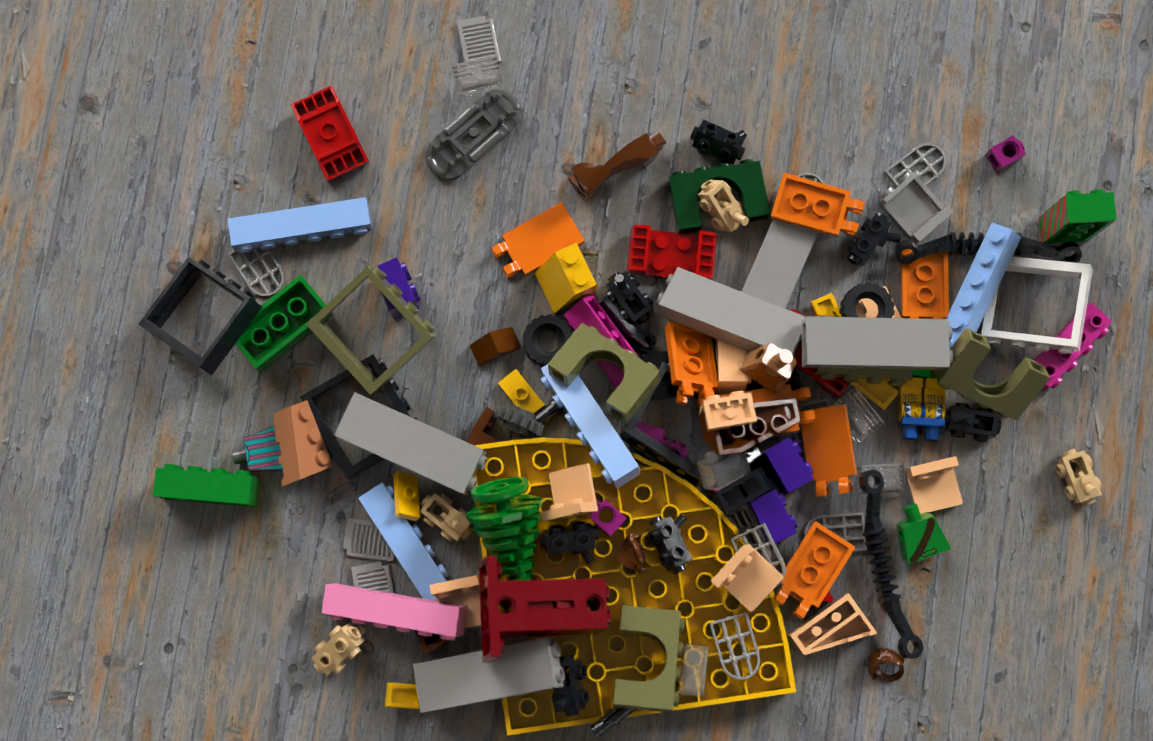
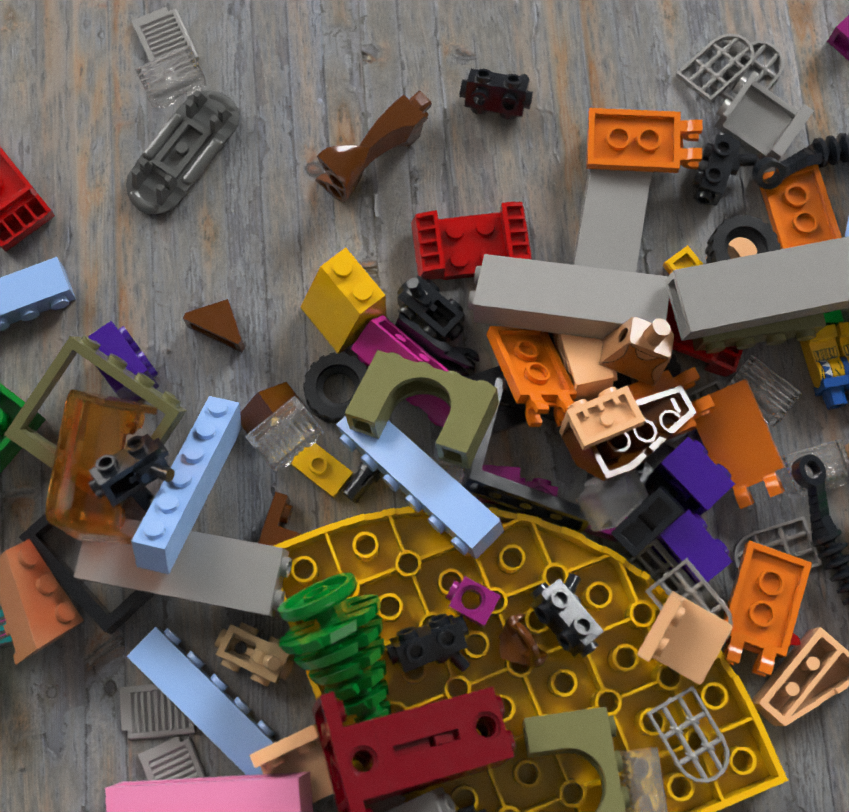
camera: 15 degrees left, 5 degrees down
(361, 361) = (89, 429): none -> clear orange windscreen
(390, 371) = (130, 469): none -> black brick
(406, 496) = (193, 638): yellow plate -> none
(427, 388) = (181, 500): none -> light blue brick
(472, 272) = (217, 323): none -> reddish brown slope
(502, 367) = (285, 434): none -> clear brick
(519, 421) = (323, 500): dark grey gear -> none
(538, 240) = (291, 265): orange tile -> none
(571, 493) = (417, 580): light nougat bracket -> none
(722, 206) = (521, 168): tan brick -> none
(743, 178) = (539, 130): dark green arch -> none
(881, 393) = (783, 357): yellow plate -> none
(891, 165) = (706, 67): none -> light grey window

